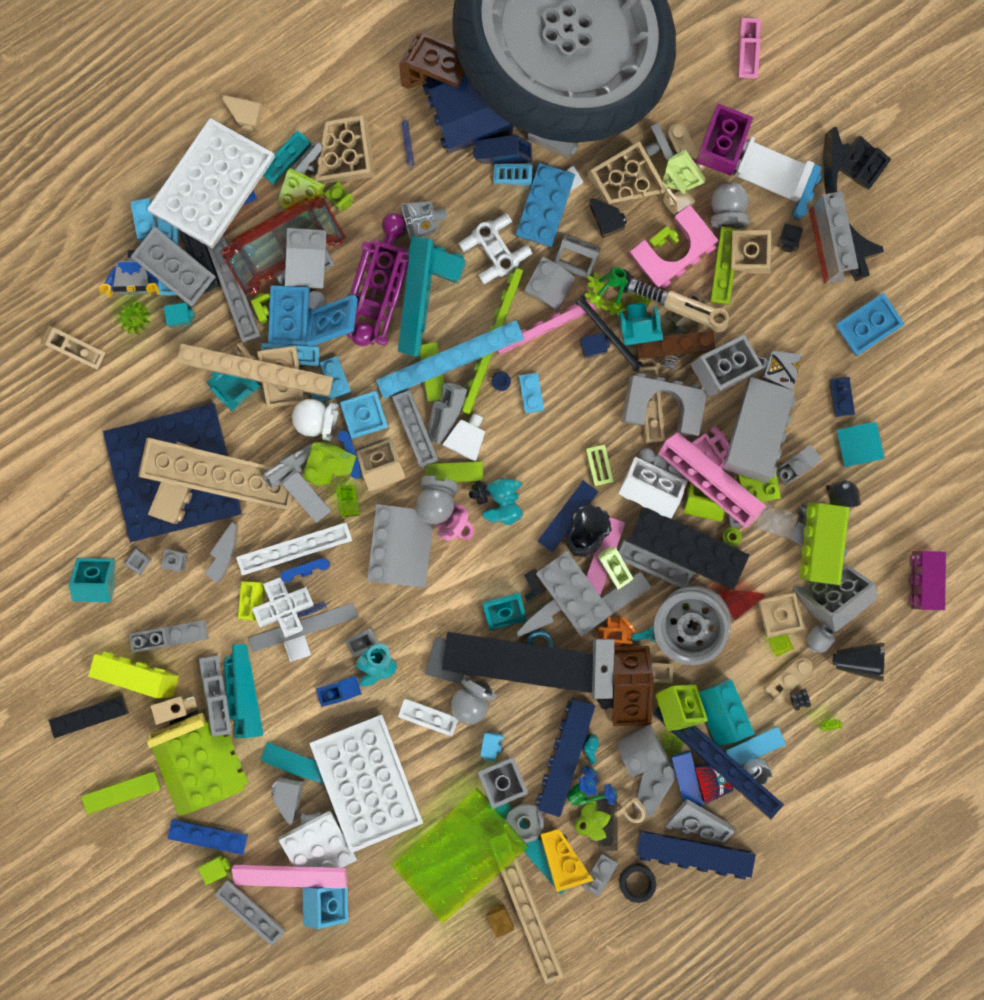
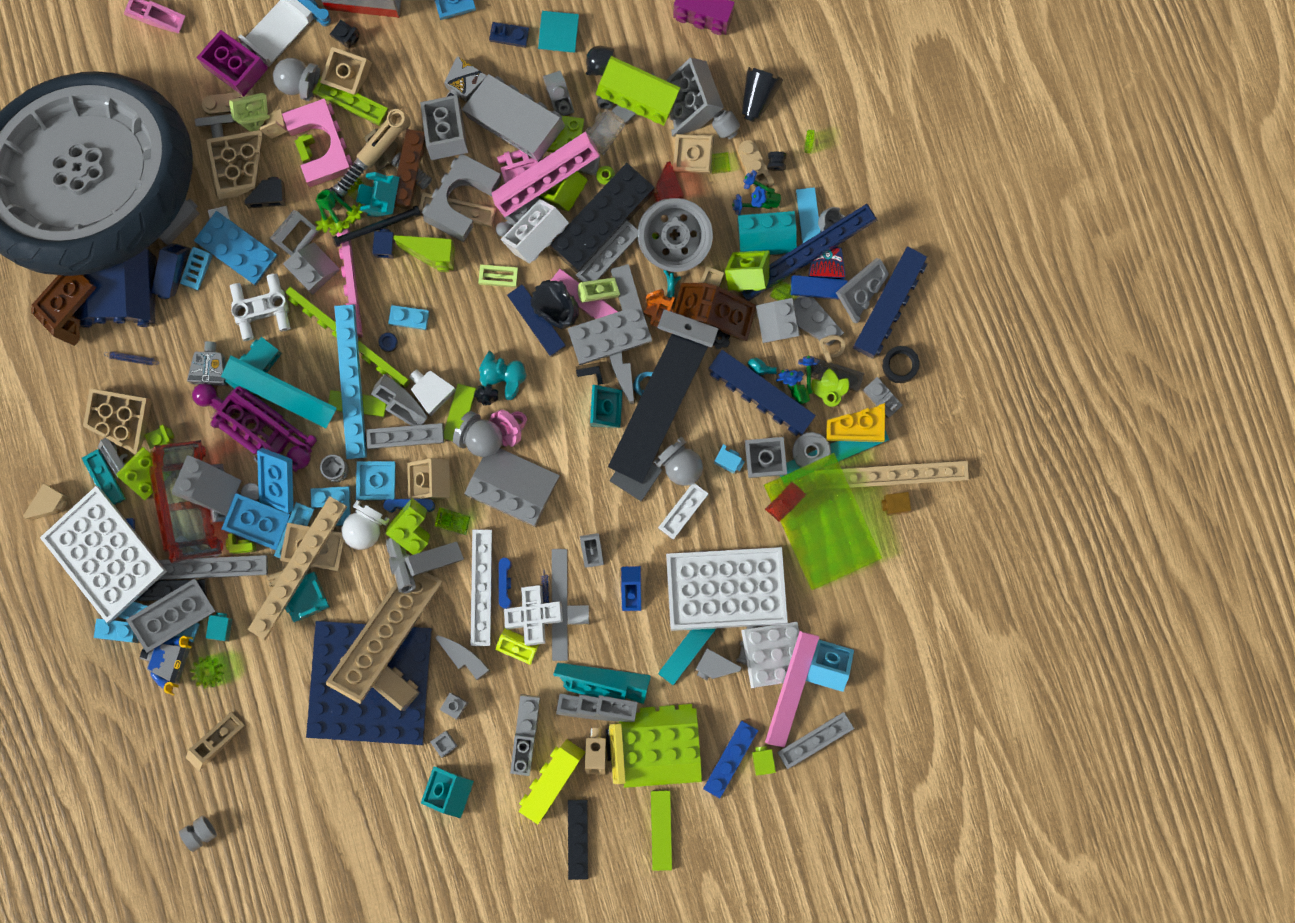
camera: 70 degrees left, 5 degrees down
(362, 372) = (334, 468): none -> light grey wheel
(376, 664) = (614, 540): teal animal -> none
(466, 816) = (785, 501): none -> clear red slope
(601, 398) = (433, 251): none -> lime slope
(757, 695) = (759, 197): none -> plant

